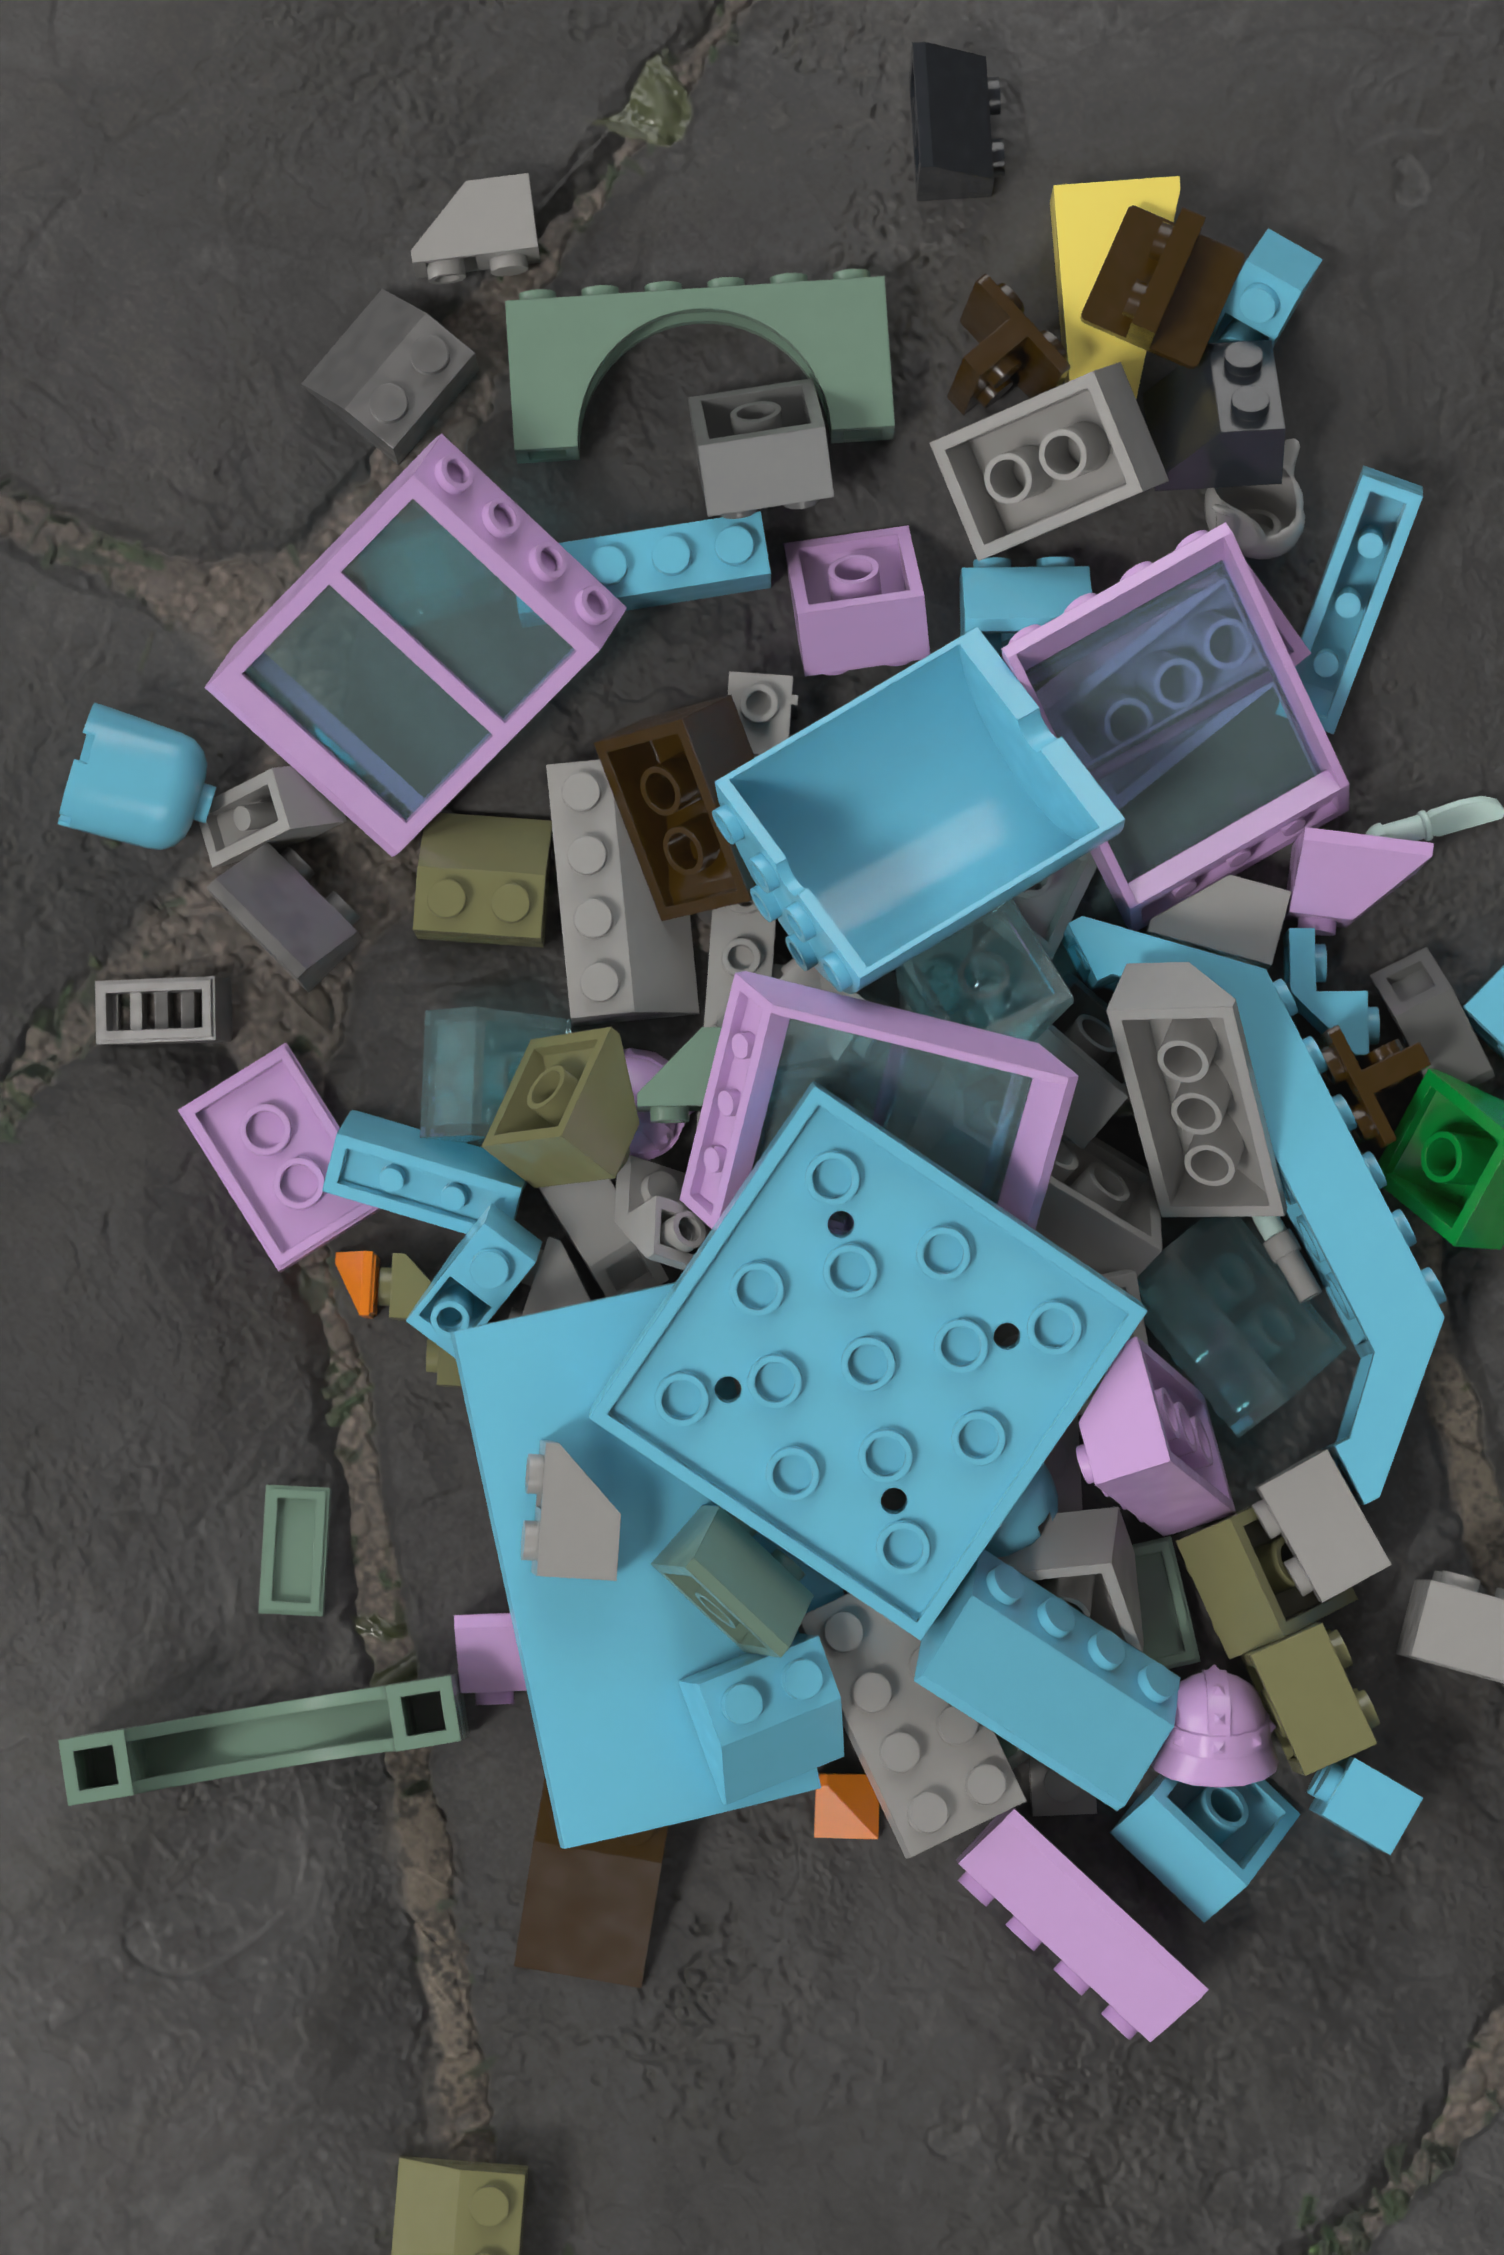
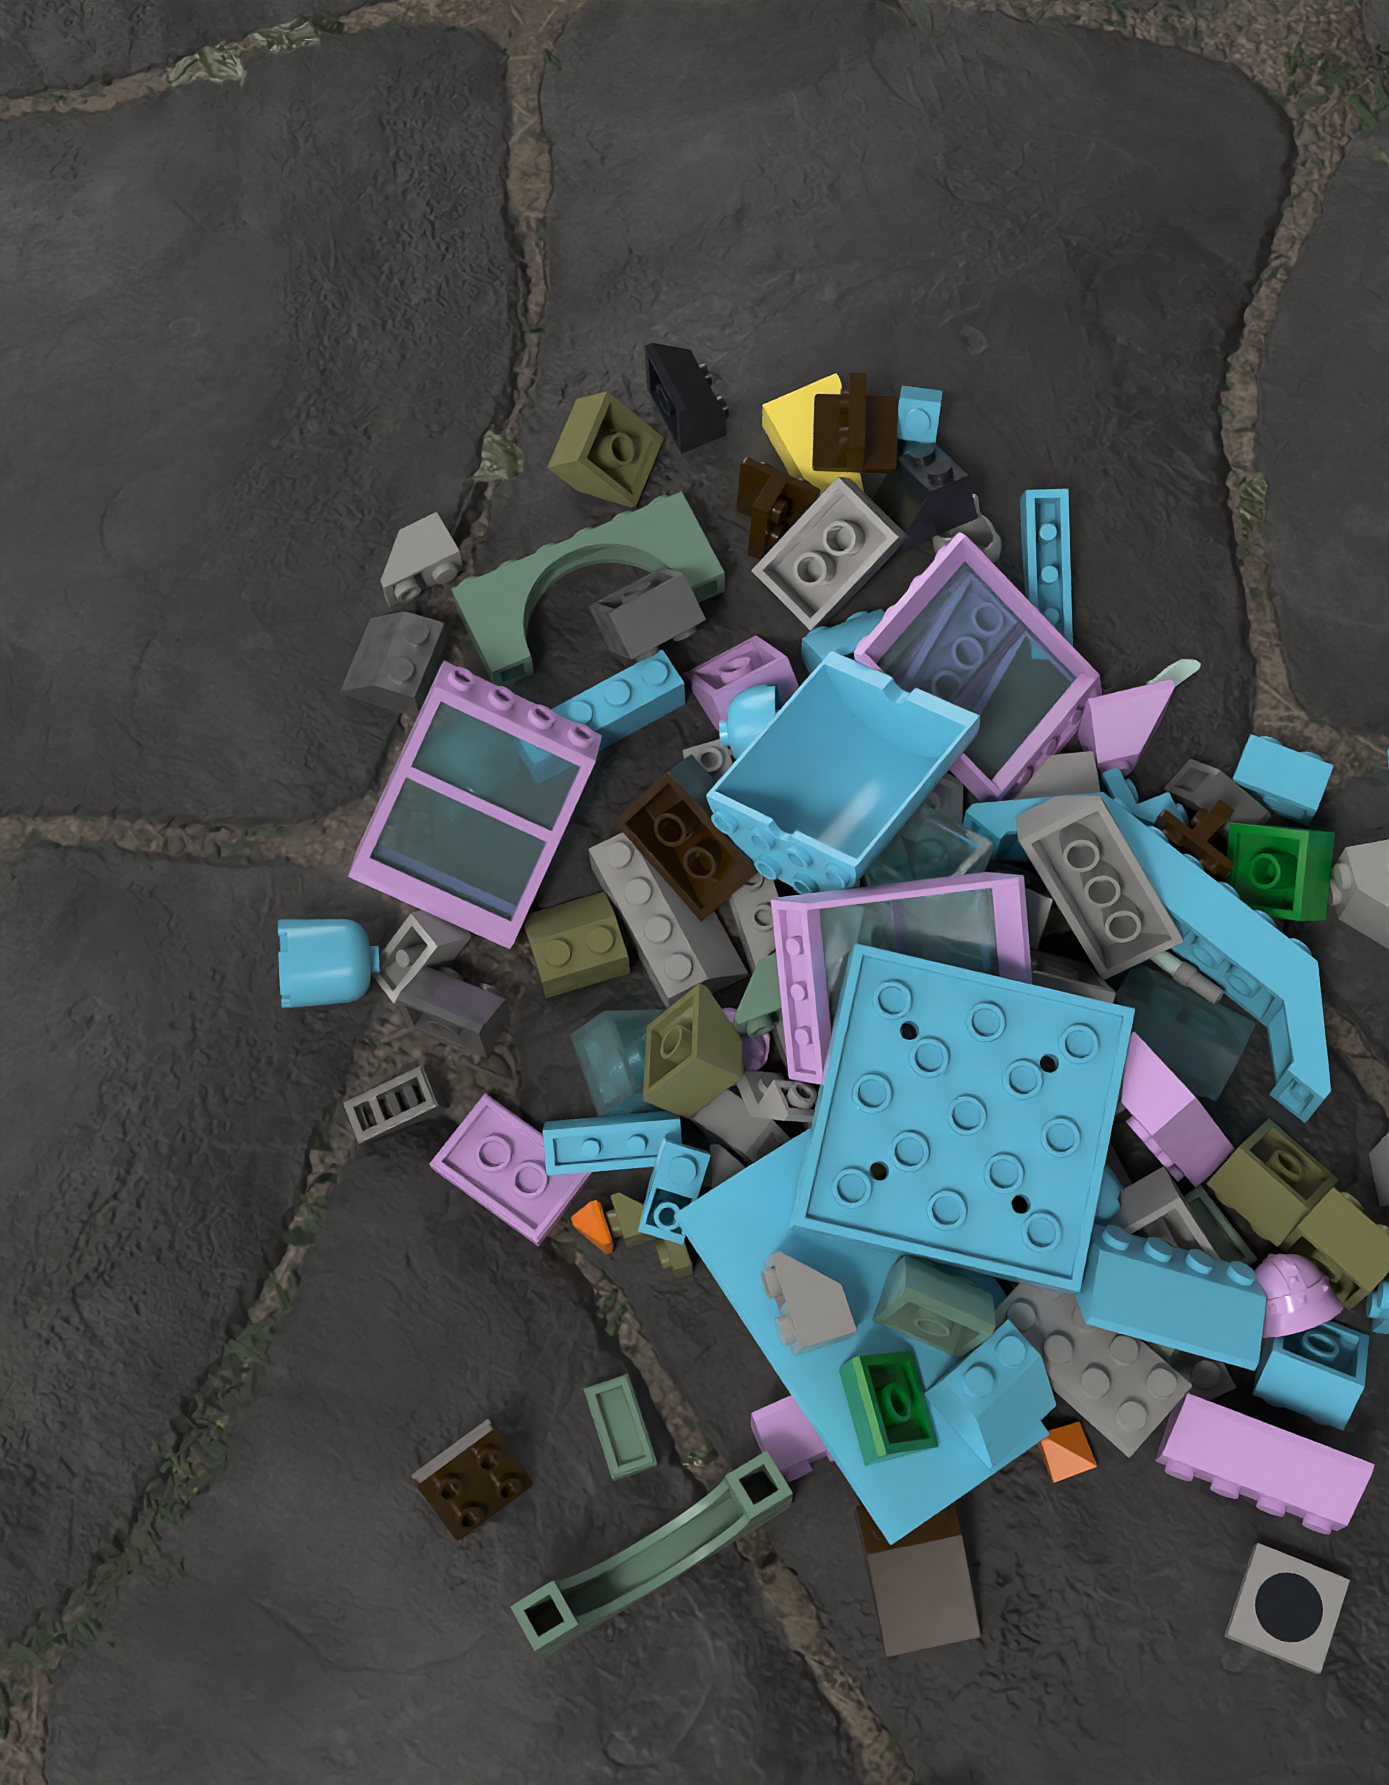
camera: 20 degrees left, 15 degrees down
(79, 1543) = (472, 1480): none -> dark brown bracket
(624, 1684) = (887, 1406): none -> green slope
(807, 162) = (606, 450): none -> olive slope
(836, 671) = (748, 716): none -> medium azure cylinder
(1037, 2105) = (1287, 1608): none -> light grey tile
(1320, 1526) = (1300, 1130): light grey slope -> none

